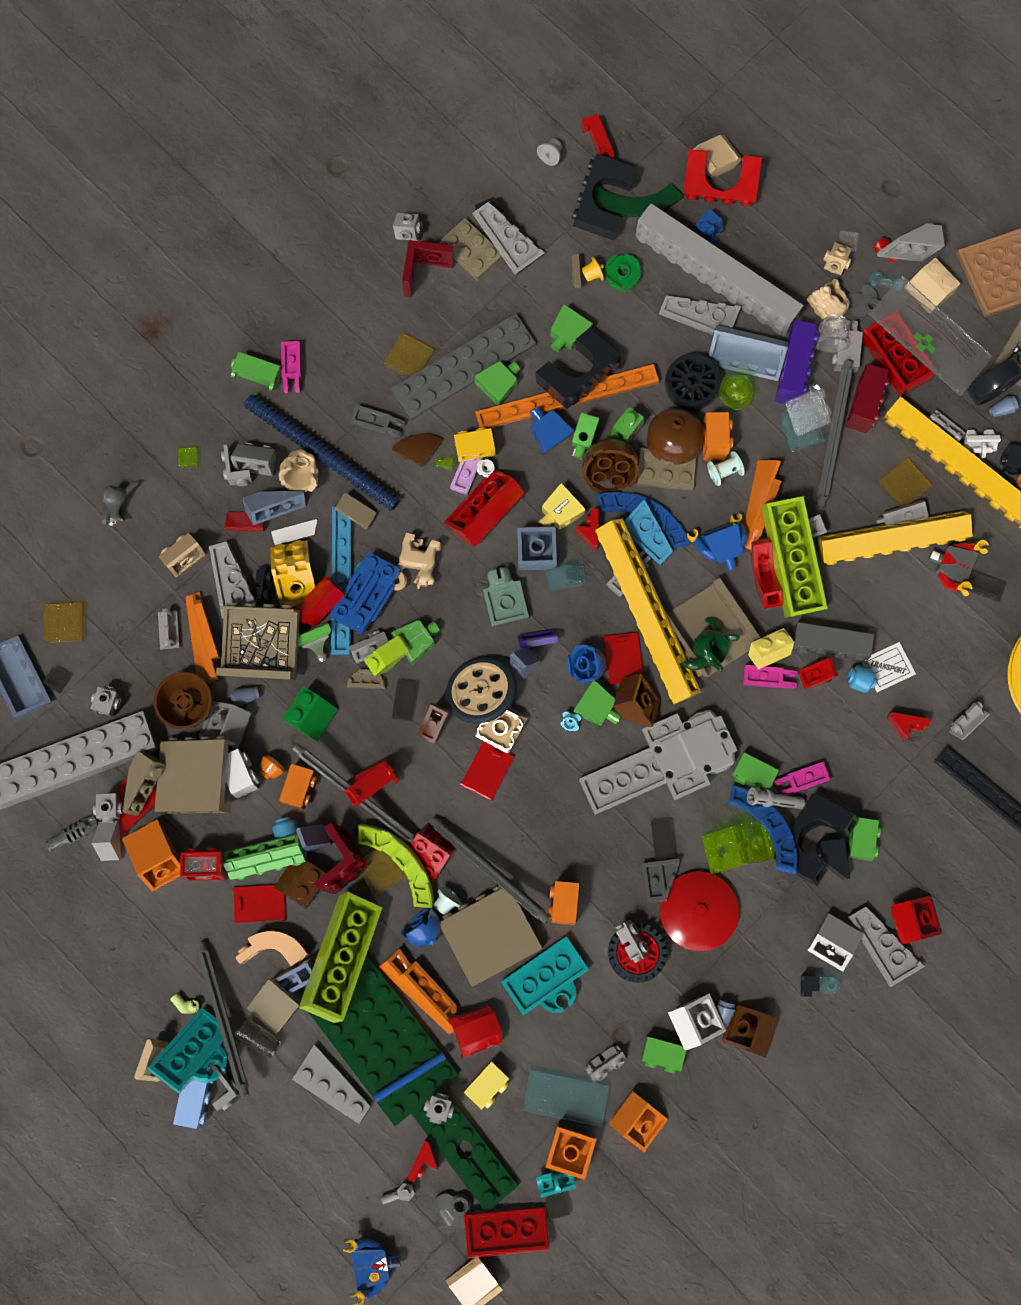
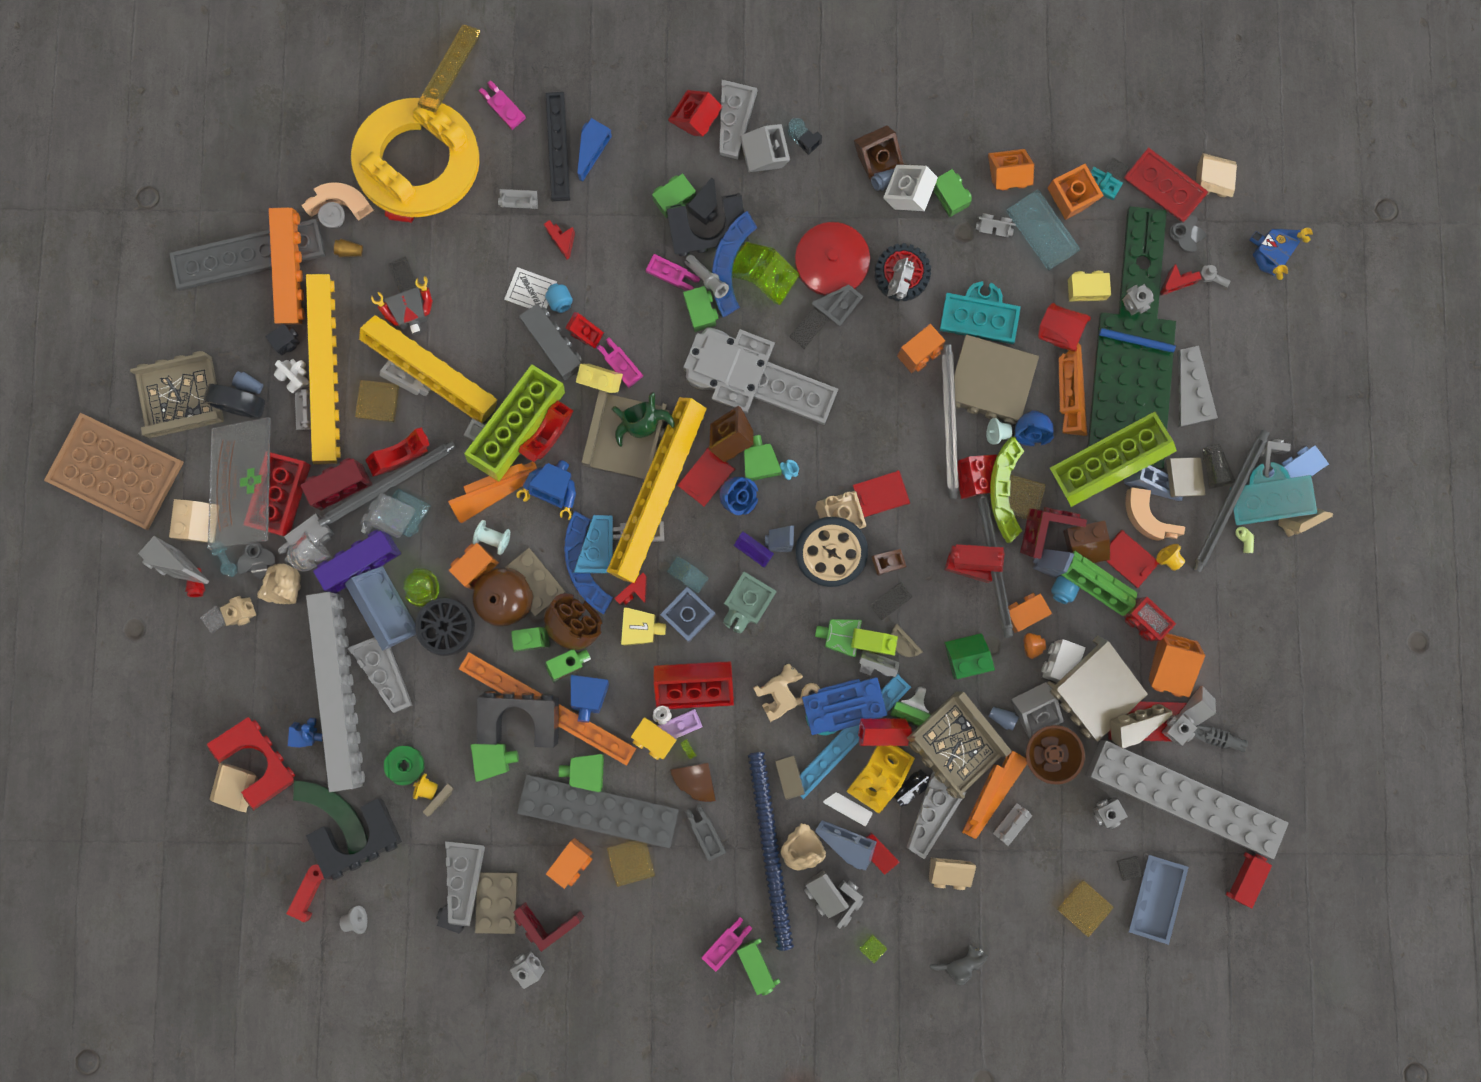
camera: 135 degrees left, 5 degrees up
(229, 933) = (1171, 557): none -> yellow piece
(446, 314) = (571, 860): none -> orange brick
(849, 459) = (399, 454): none -> red arch
(963, 817) = (593, 141): none -> blue slope

